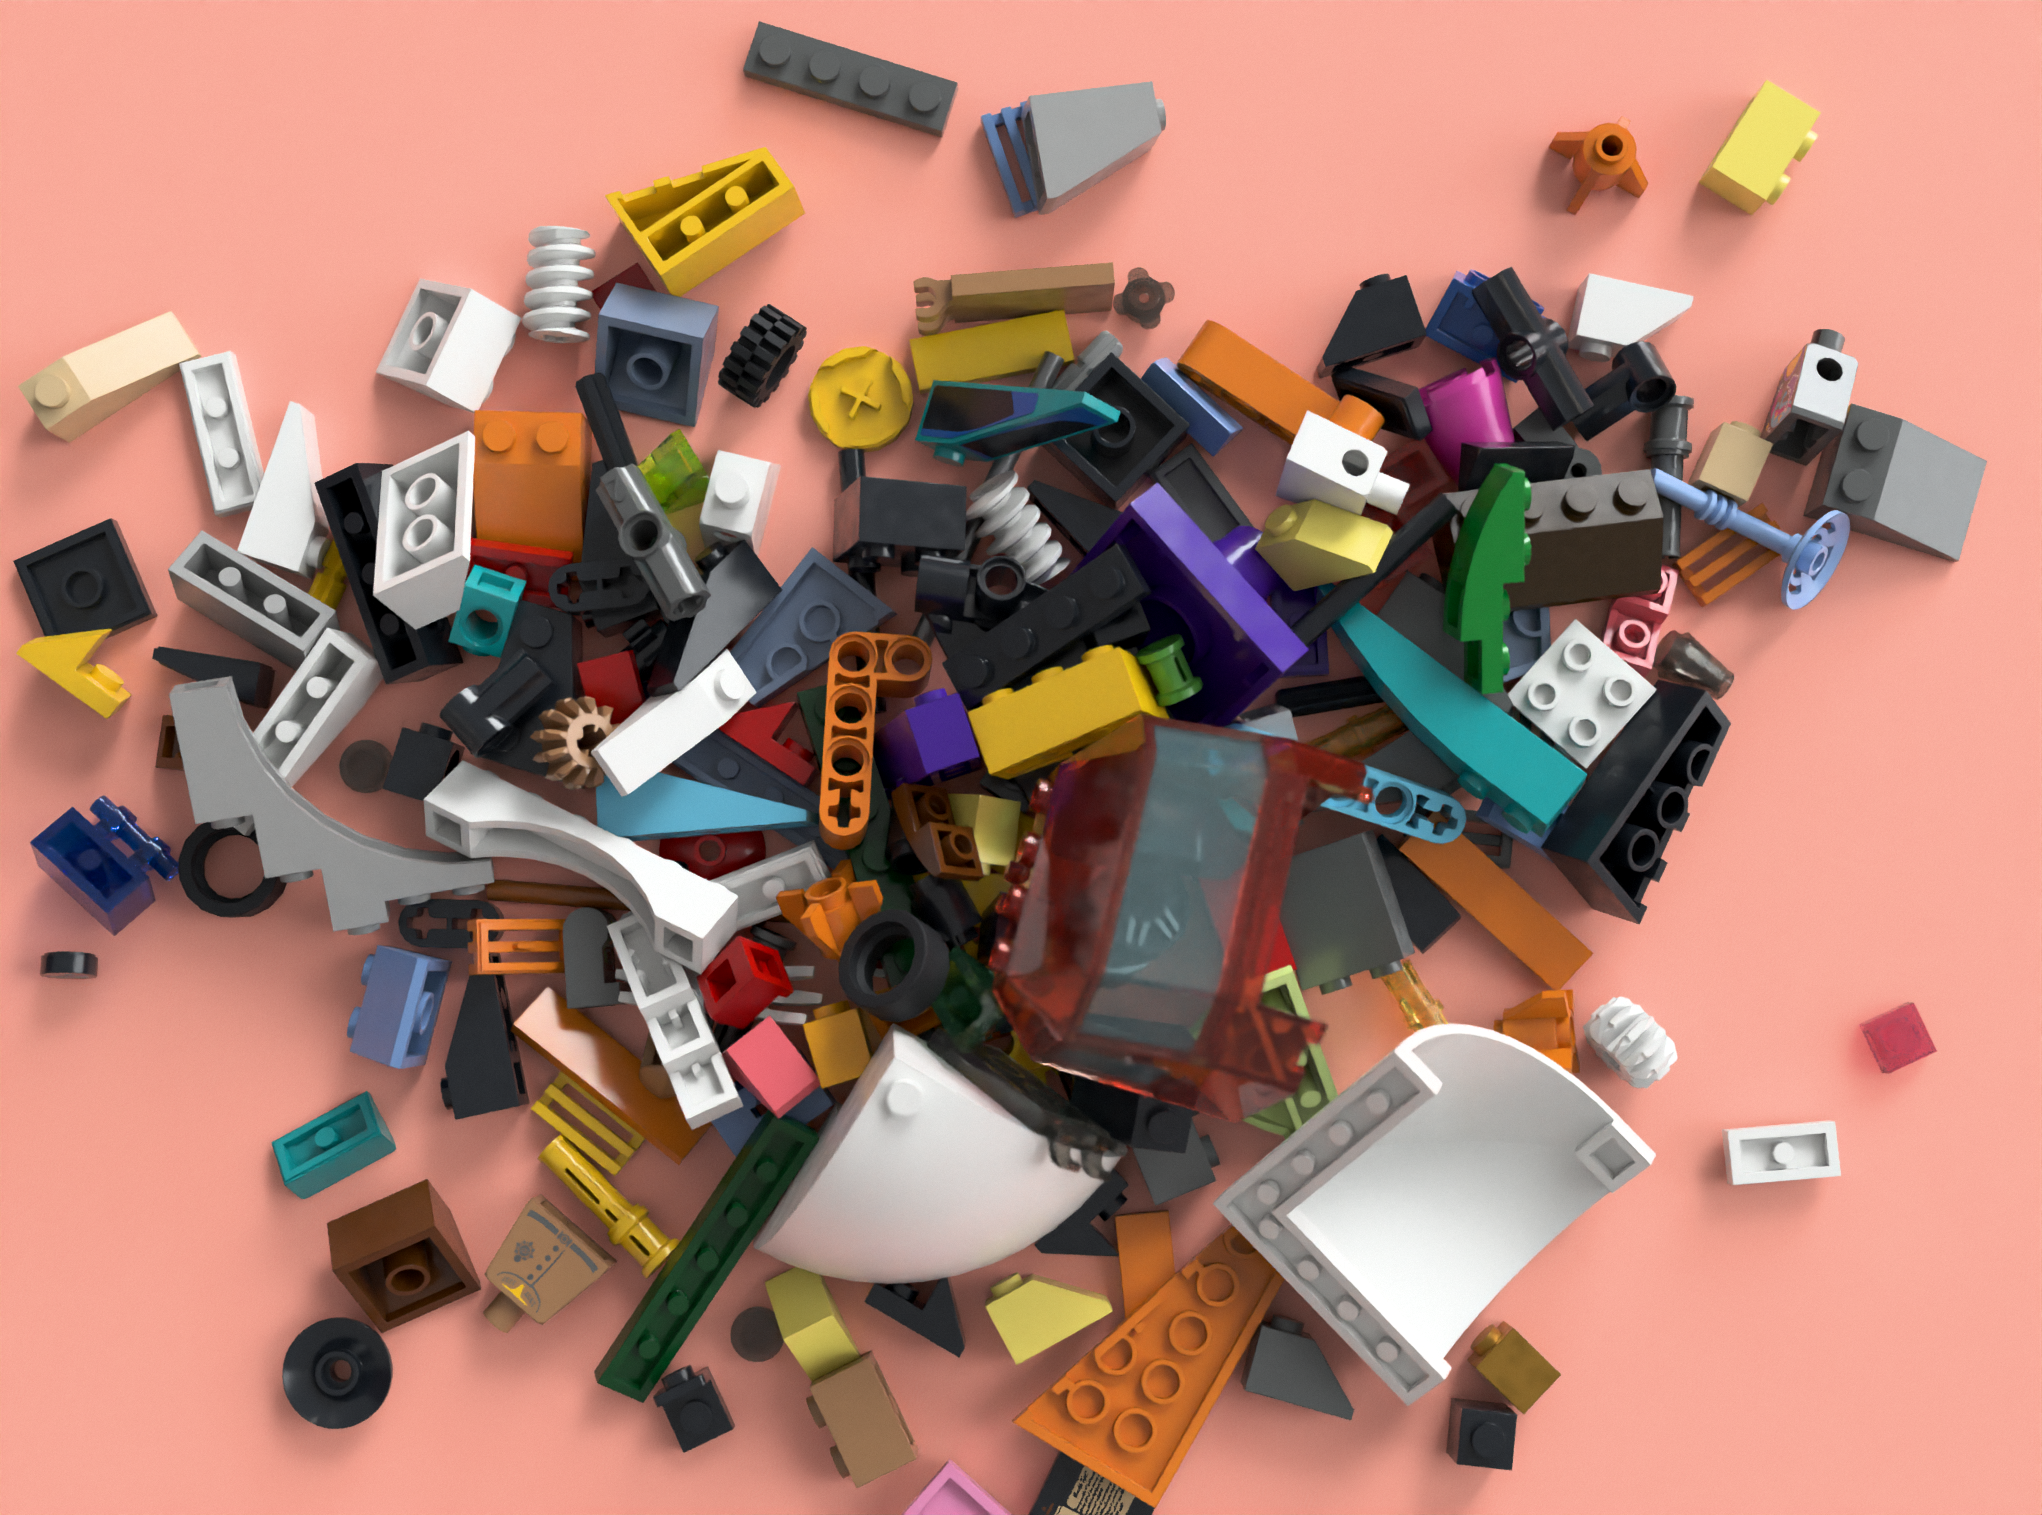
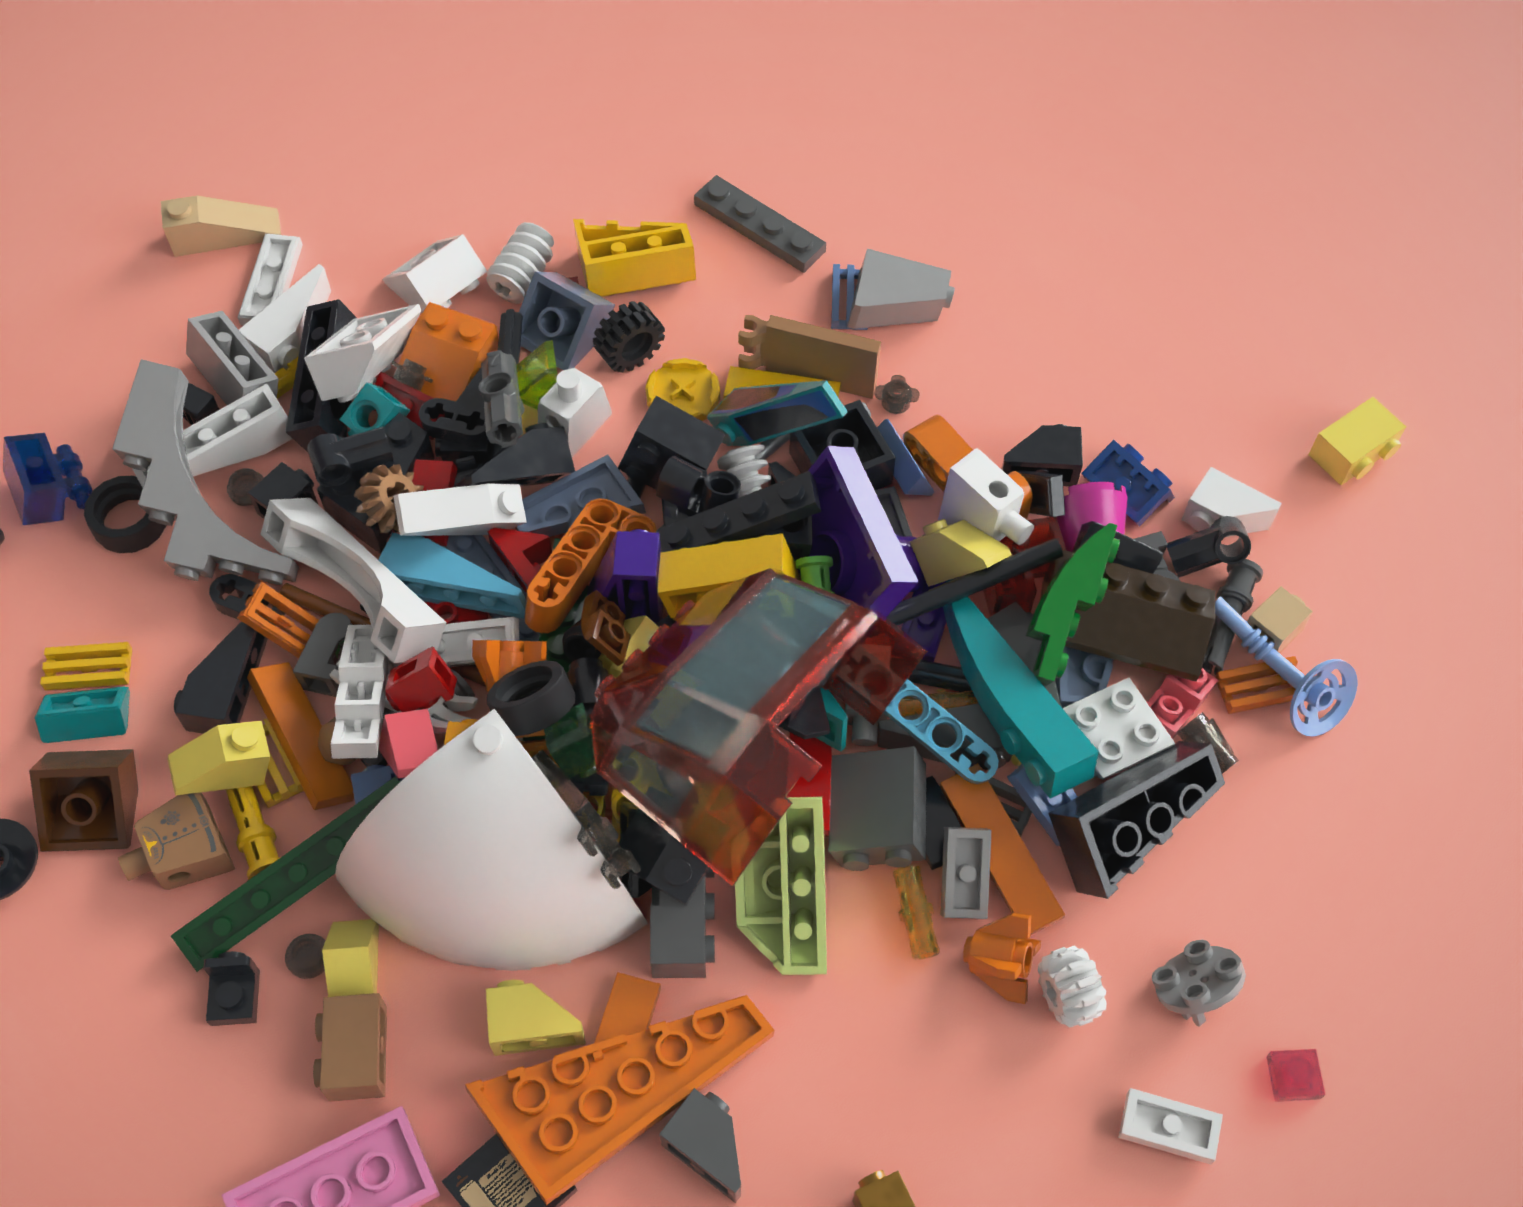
camera: 20 degrees right, 25 degrees down
(66, 662) = (99, 358): yellow slope -> none
(86, 583) = (133, 332): black tile -> none
(260, 1105) = (86, 659): none -> yellow tile
(398, 1006) = (183, 633): medium blue slope -> none
(505, 533) = (411, 374): none -> clear smoke plate
(546, 1163) = (221, 759): none -> light yellow slope
(935, 1320) = (444, 987): black slope -> none
(1077, 1233) = (581, 966): black slope -> none
(1430, 1192) = (870, 1020): white panel -> none
(1466, 949) = (965, 872): none -> light grey plate
(1532, 348) = (1154, 490): black piece -> none
(1602, 160) = (1242, 413): orange brick -> none
(1781, 955) = (1199, 980): none -> light grey plate
(1811, 399) = (1357, 582): dark grey torso -> none
(1898, 483) = (1405, 677): slope -> none

